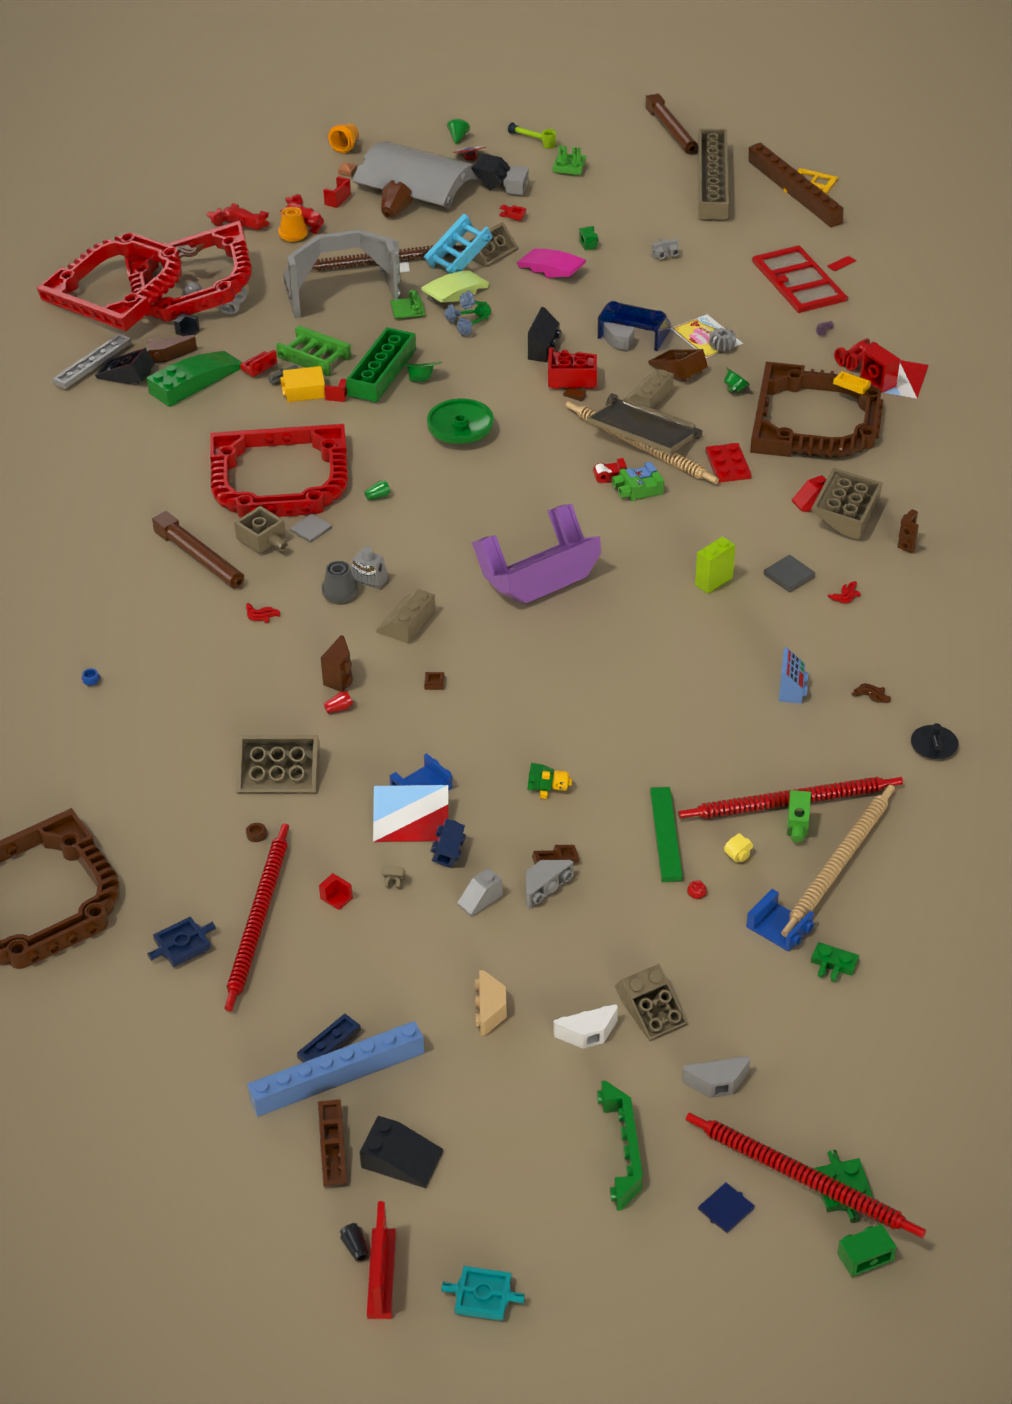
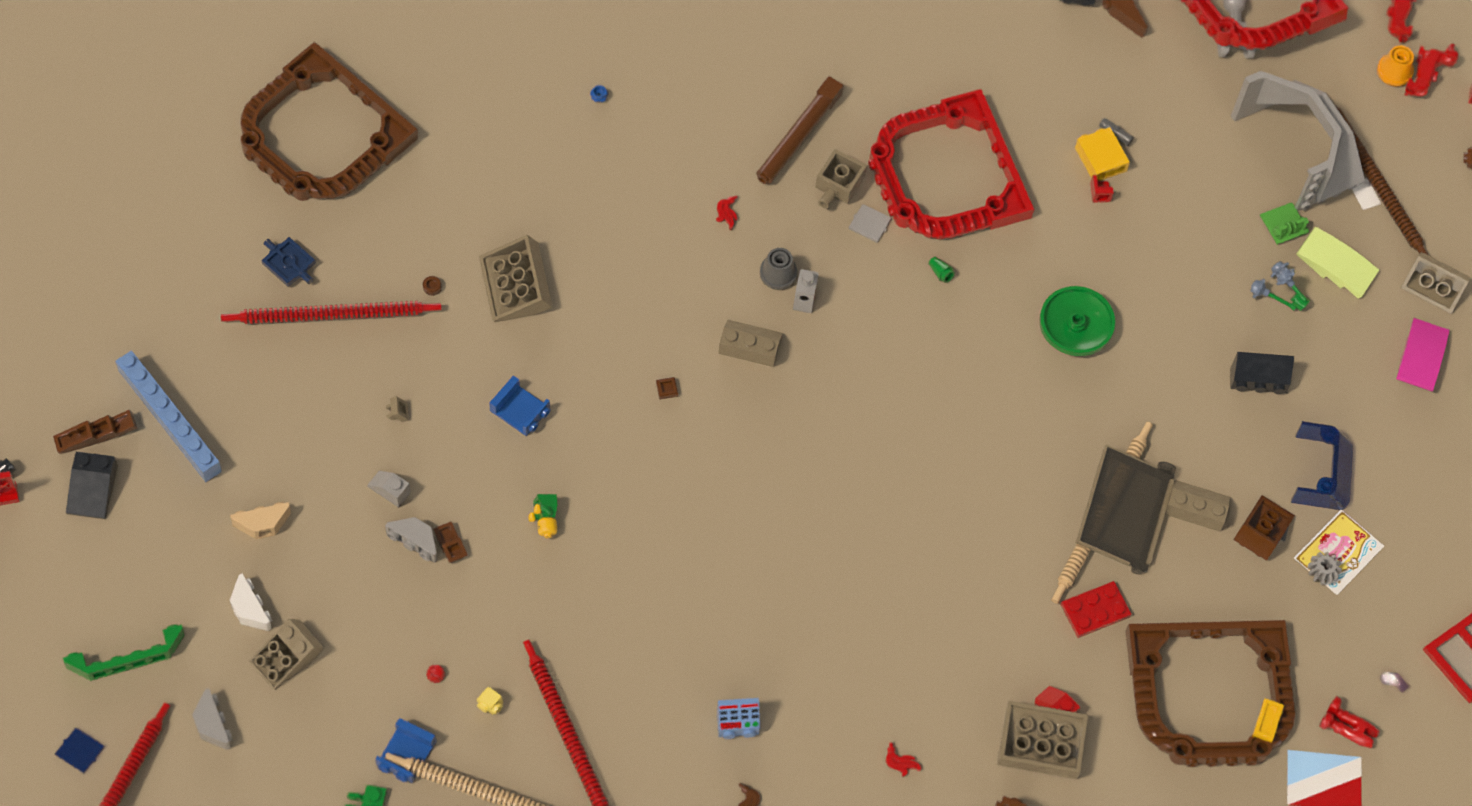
camera: 70 degrees right, 20 degrees up
(186, 325) = (1171, 15): black panel -> none
(190, 376) = (1087, 47): green slope -> none
(259, 363) = (1126, 102): red bracket -> none
(315, 340) = (1178, 160): bright green fence -> none
(330, 1039) = (199, 403): dark blue plate -> none
(335, 891) = (369, 367): red panel -> none
(337, 666) = (654, 296): reddish brown slope -> none
(338, 702) = (612, 311): red cone -> none
(381, 364) = (1156, 220): green brick -> none
(409, 812) = (474, 405): sticker -> none
(420, 372) = (1162, 261): green piece -> none
(449, 839) = (442, 445): dark blue brick -> none
(450, 238) = (1404, 231): medium azure fence -> none
(546, 570) = (845, 449): medium lavender wedge -> none
(571, 369) = (1209, 413): red wedge -> none
(575, 394) = (1175, 429): reddish brown piece -> none
(605, 472) = (1038, 490): red leg -> none
(618, 336) = (1295, 455): light grey slope -> none
(639, 482) = (1027, 521): bright green hips -> none
(665, 834) = (501, 634): green tile -> none
(715, 565) = (891, 616): lime brick -> none
(734, 381) = (1249, 594): green piece -> none
(789, 573) = (918, 698): dark grey tile -> none
(798, 820) = (538, 748): bright green torso -> none
(880, 367) = (1313, 751): red brick -> none

